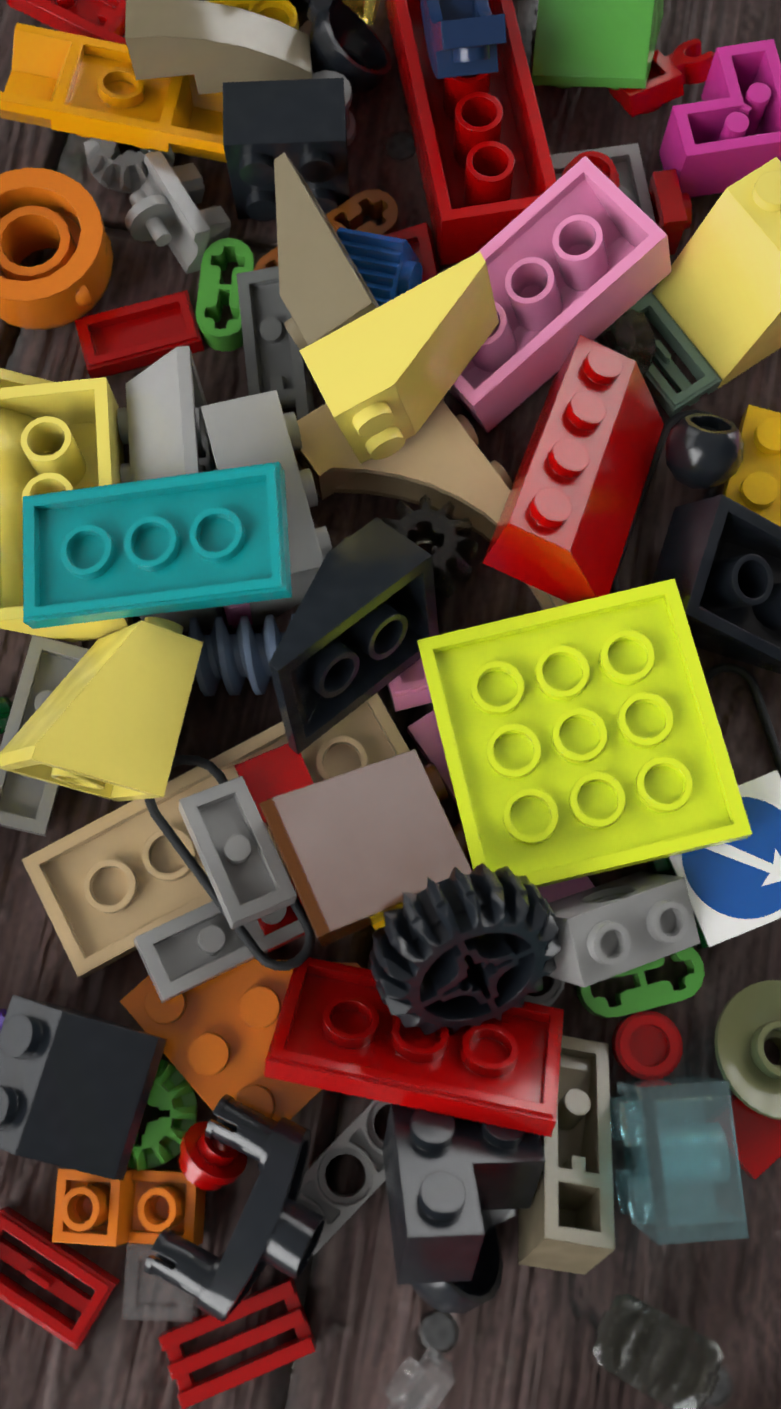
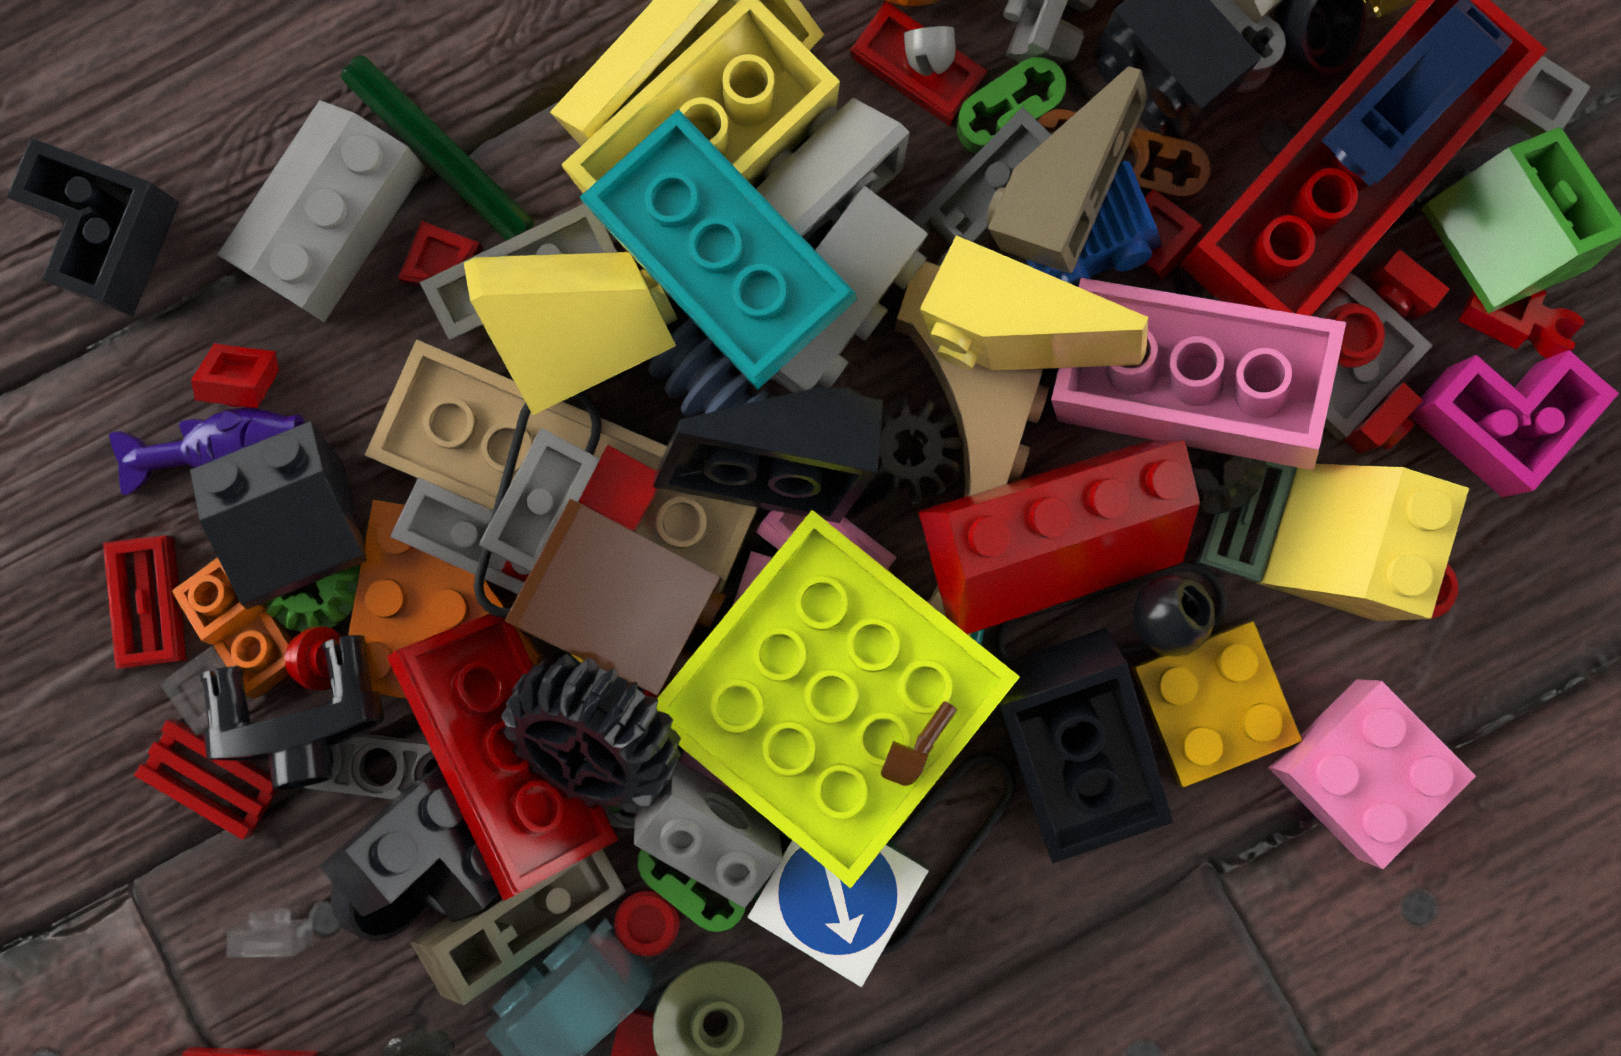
camera: 55 degrees right, 10 degrees up
(135, 306) = (930, 49): none -> light grey hinge
(580, 126) = (1406, 286): none -> red plate
(685, 707) = (906, 763): none -> reddish brown hand

